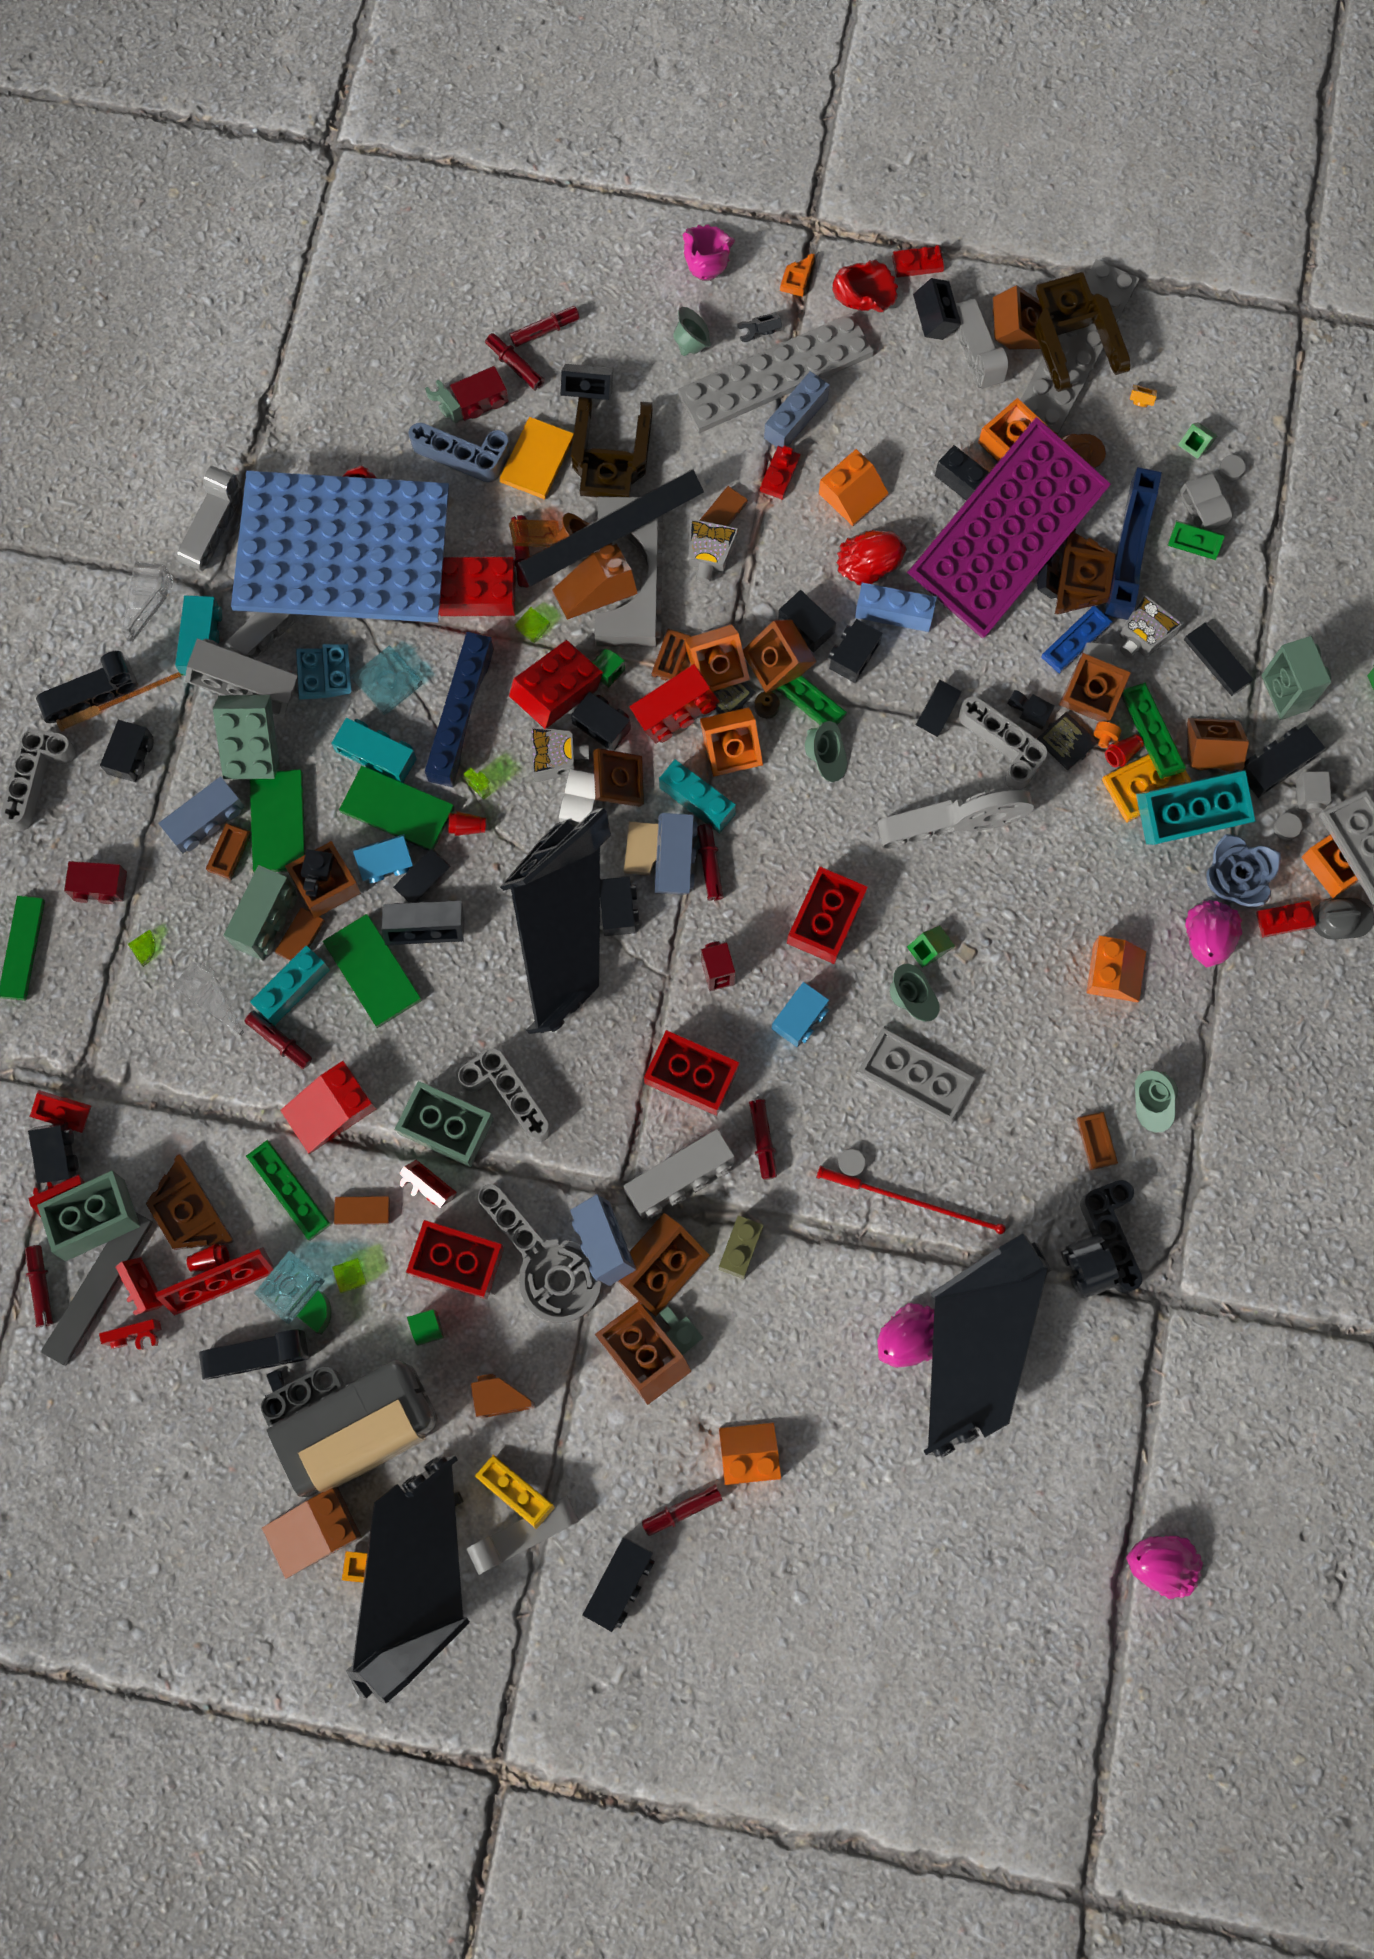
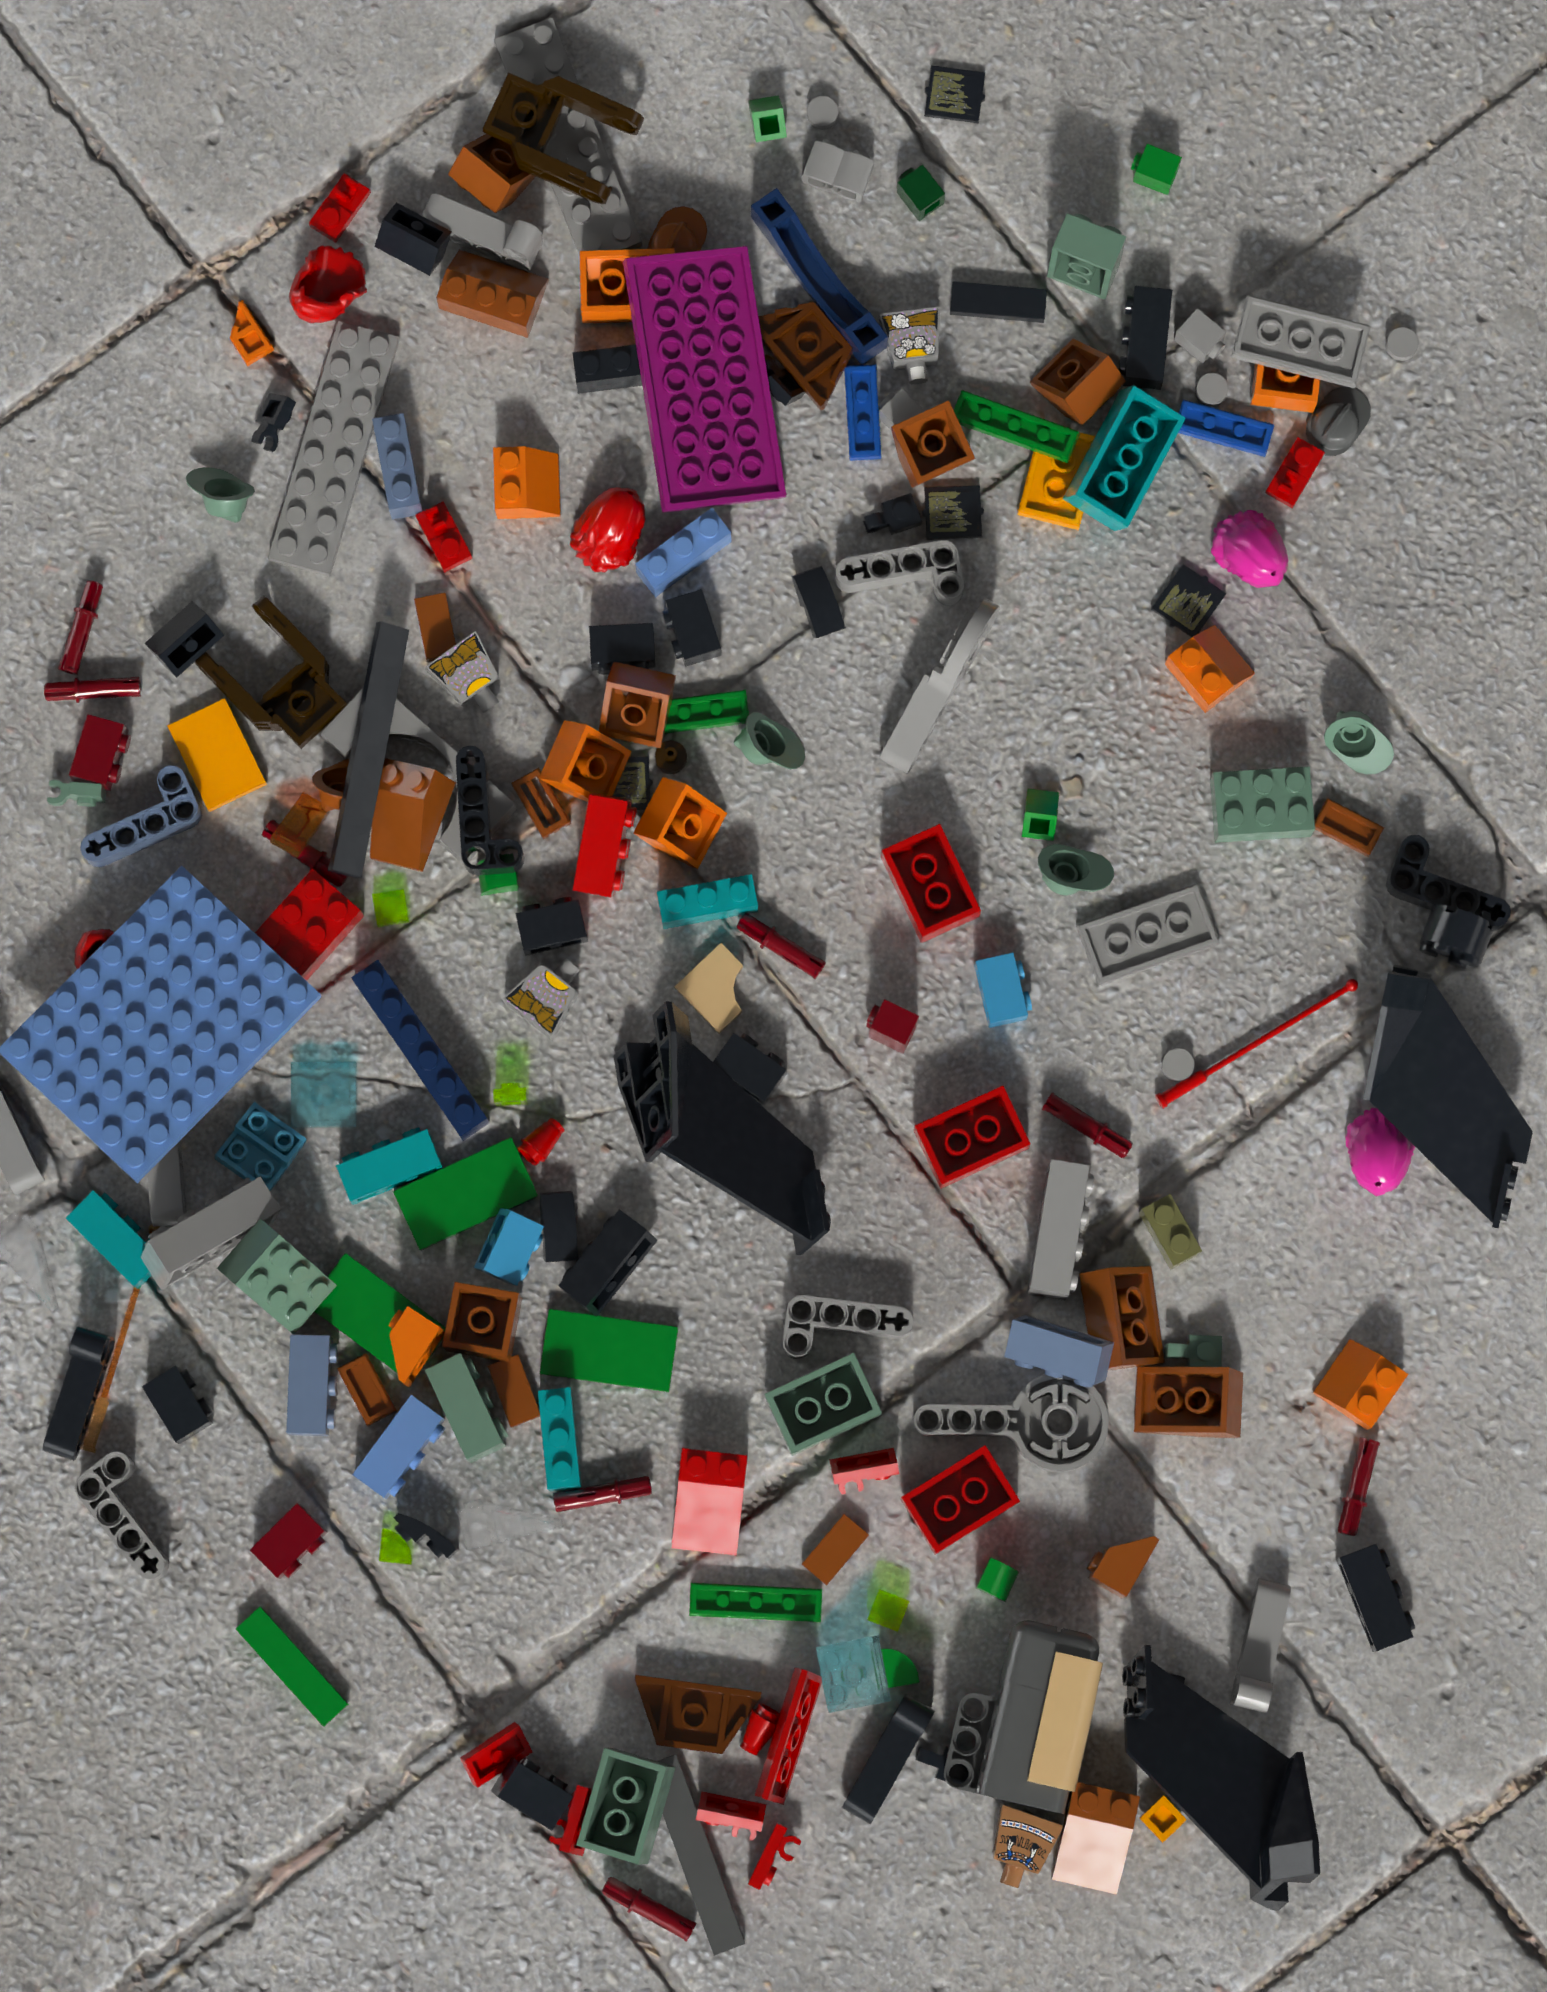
camera: 50 degrees left, 5 degrees up
(164, 949) = (414, 1529): none -> black slope
(204, 897) = (400, 1448): none -> medium blue brick
(266, 1489) = (1022, 1843): none -> medium nougat torso
(270, 846) = (412, 1343): none -> orange slope
(316, 867) = (473, 1318): black plate -> none
(515, 1491) = (1216, 1621): yellow tile -> none
(555, 684) = (480, 938): red brick -> none
(578, 797) = (612, 1011): white brick -> none
(618, 777) = (624, 959): reddish brown tile -> none
(632, 619) = (480, 811): none -> black beam
(675, 854) = (748, 972): sand blue brick -> none
(706, 251) = (146, 400): dark pink piece -> none
(946, 378) = (491, 293): none -> dark orange slope
(1061, 1073) = (1262, 804): none -> sand green brick
(1107, 733) = (980, 471): orange tile -> none
(1122, 751) = (1010, 472): red cone -> none
(1143, 396) = (676, 127): light orange plate -> none
(1145, 923) = (1188, 601): none -> piece
(1196, 540) = (865, 214): green plate -> none
(1239, 559) = (920, 191): none -> dark green brick
(1257, 863) = (1226, 451): sand blue brick -> none
(1262, 834) = (1225, 428): none -> blue tile
(1317, 531) = (954, 94): none -> piece

